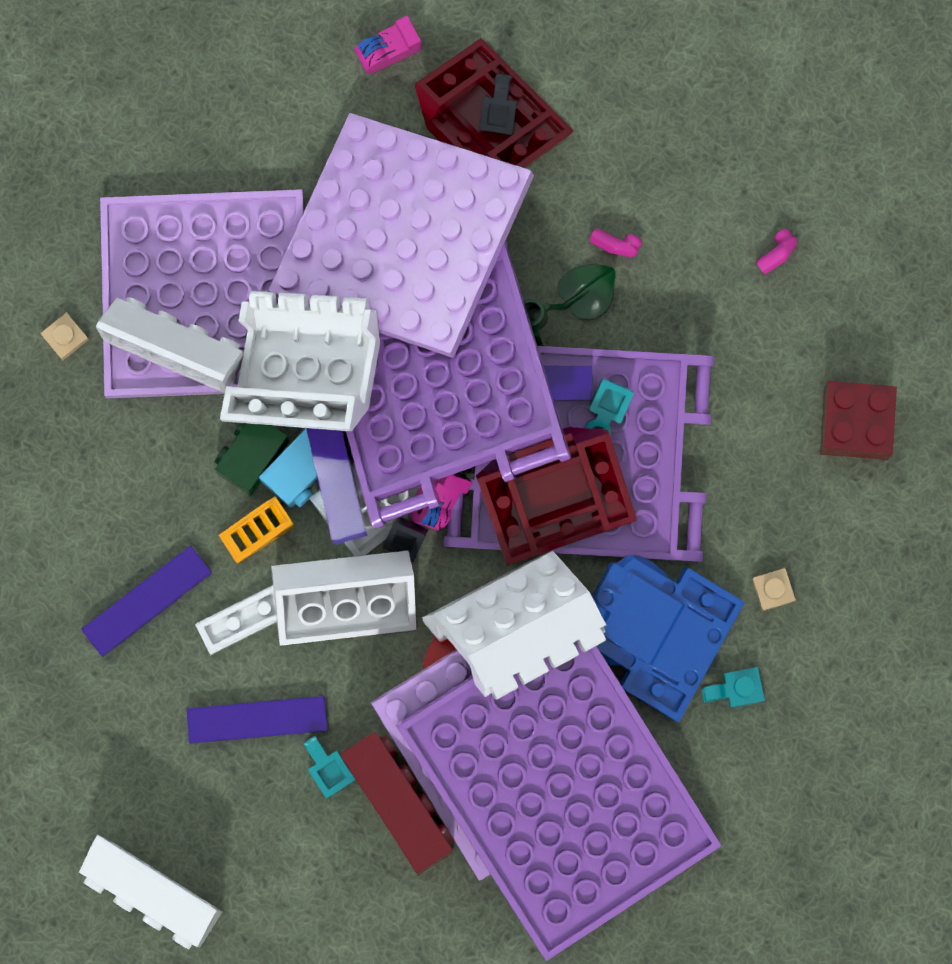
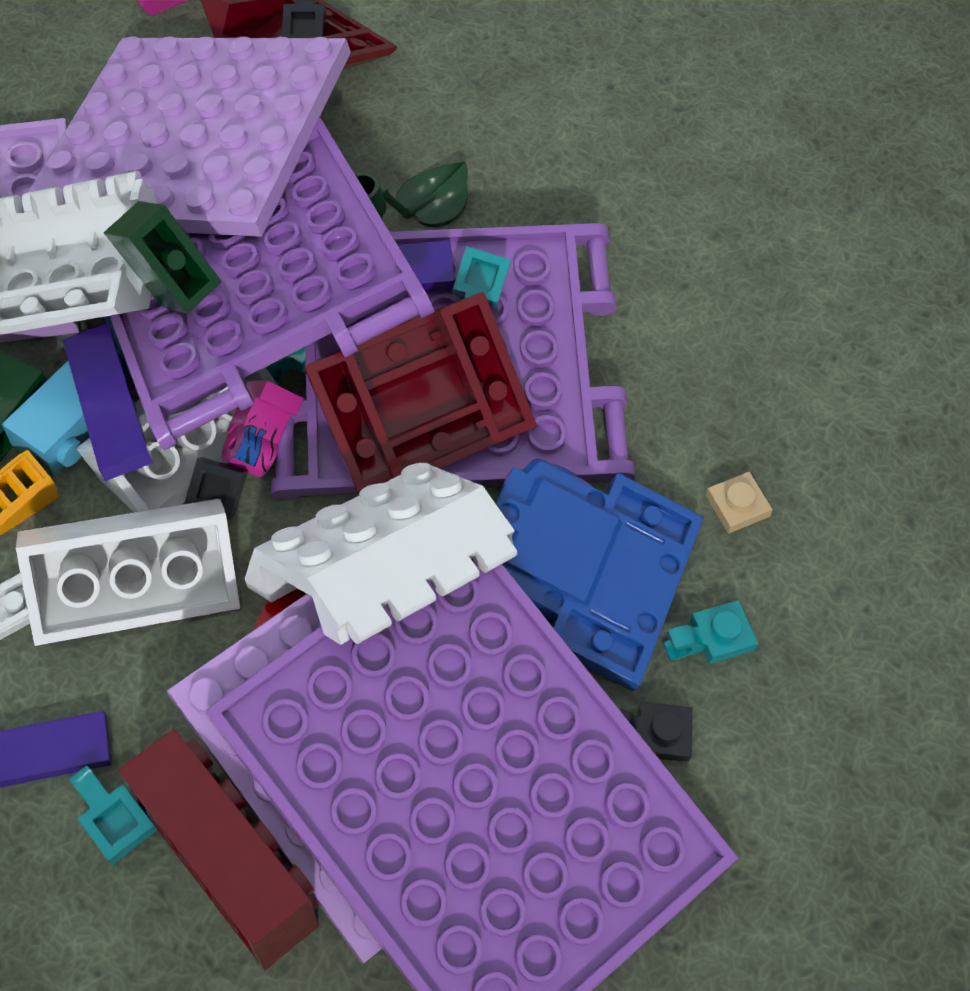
camera: 10 degrees left, 20 degrees down
(384, 386) = (163, 256): none -> dark green brick
(614, 245) = (470, 145): dark pink arm -> none
(687, 752) = (664, 729): none -> black plate
(779, 254) = (668, 130): dark pink arm -> none
(858, 420) = (806, 290): dark red brick -> none

